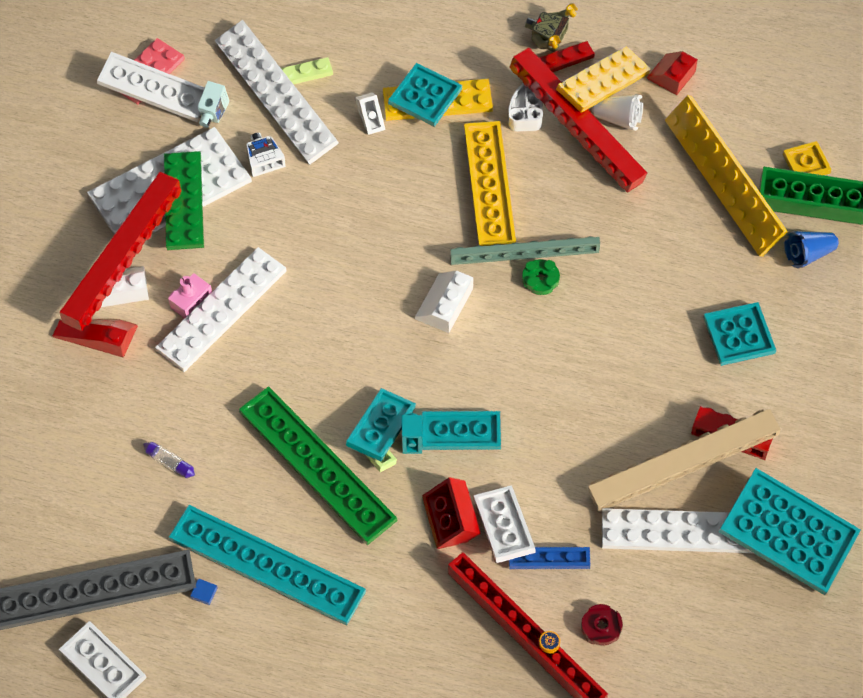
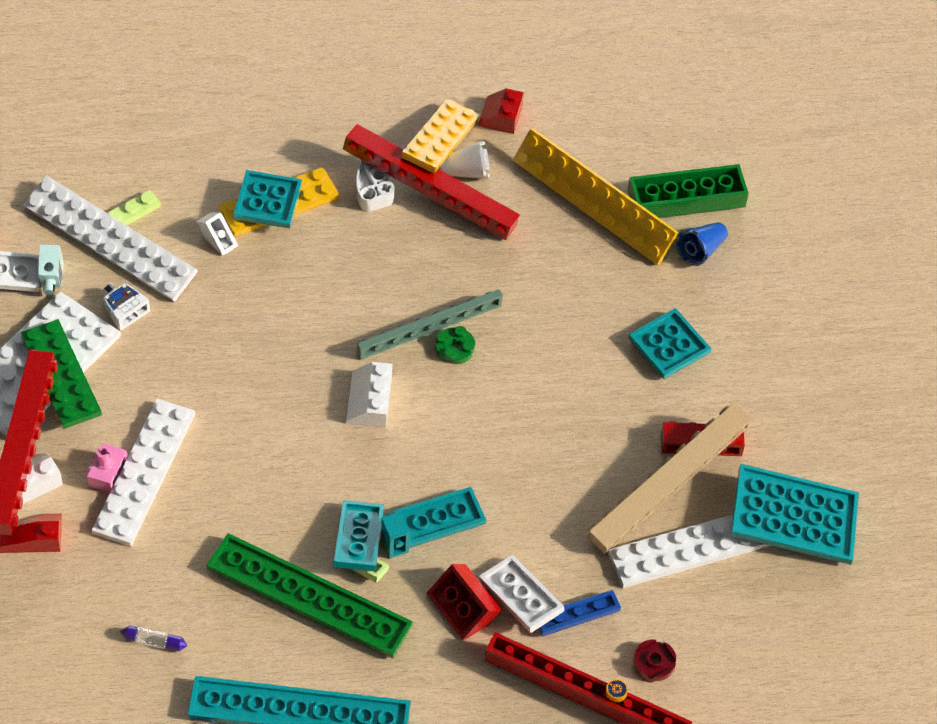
camera: 25 degrees left, 5 degrees down
(489, 183) = (367, 269): yellow plate -> none
(551, 27) = (365, 100): torso -> none
(568, 56) = (395, 122): red plate -> none
(807, 159) = (664, 159): yellow plate -> none

